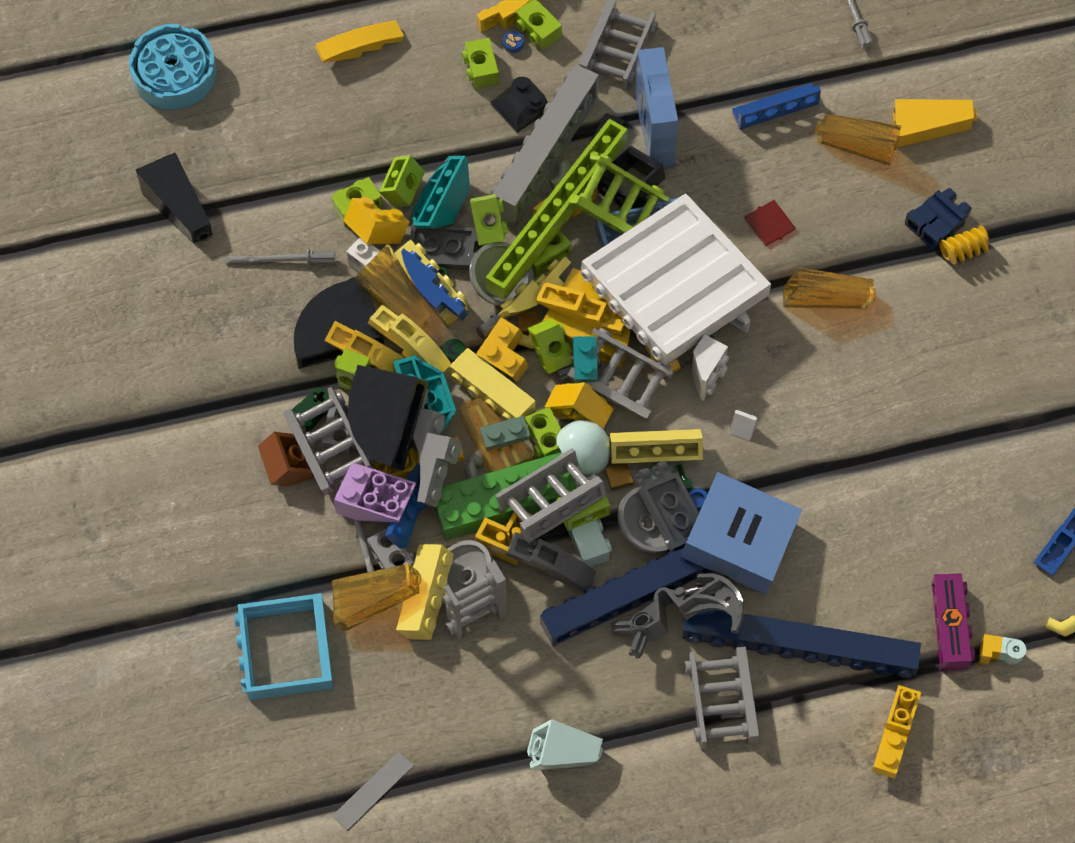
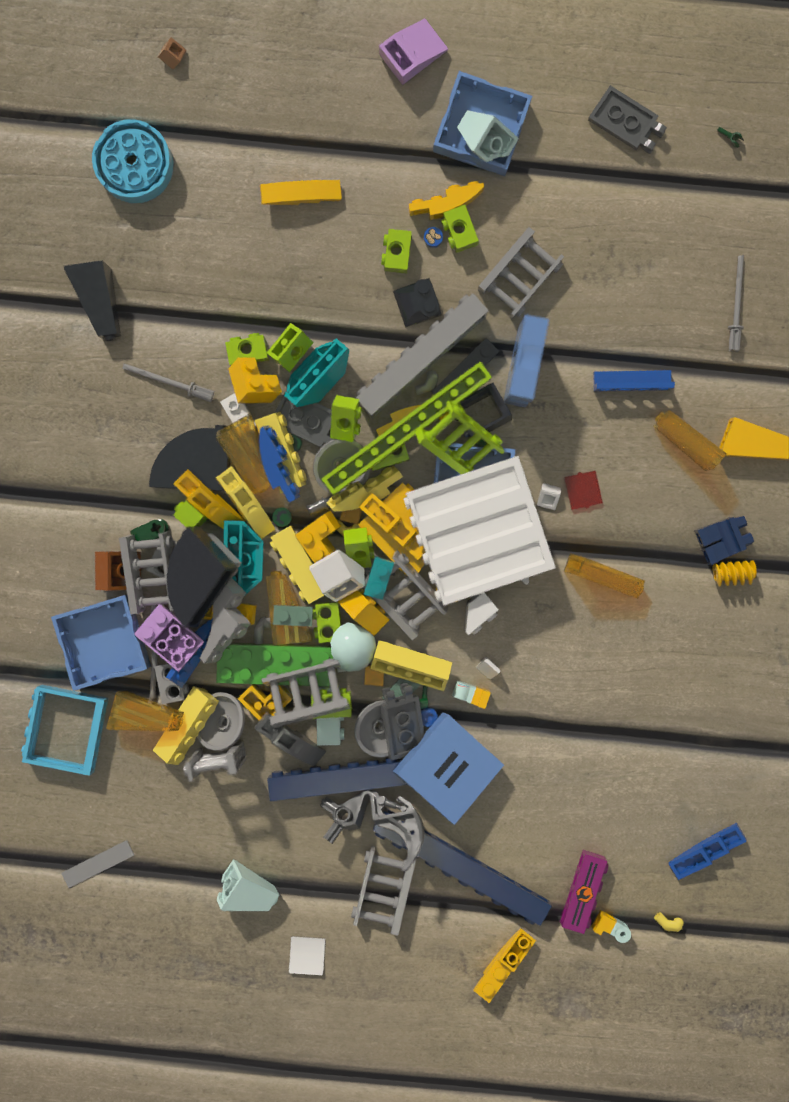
camera: 25 degrees right, 25 degrees up
(296, 538) = (100, 642): none -> medium blue tile
(538, 374) = (338, 575): none -> white slope
(661, 808) = (307, 955): none -> white sticker
(735, 457) = (471, 694): none -> leg
(738, 238) = (549, 496): none -> white slope

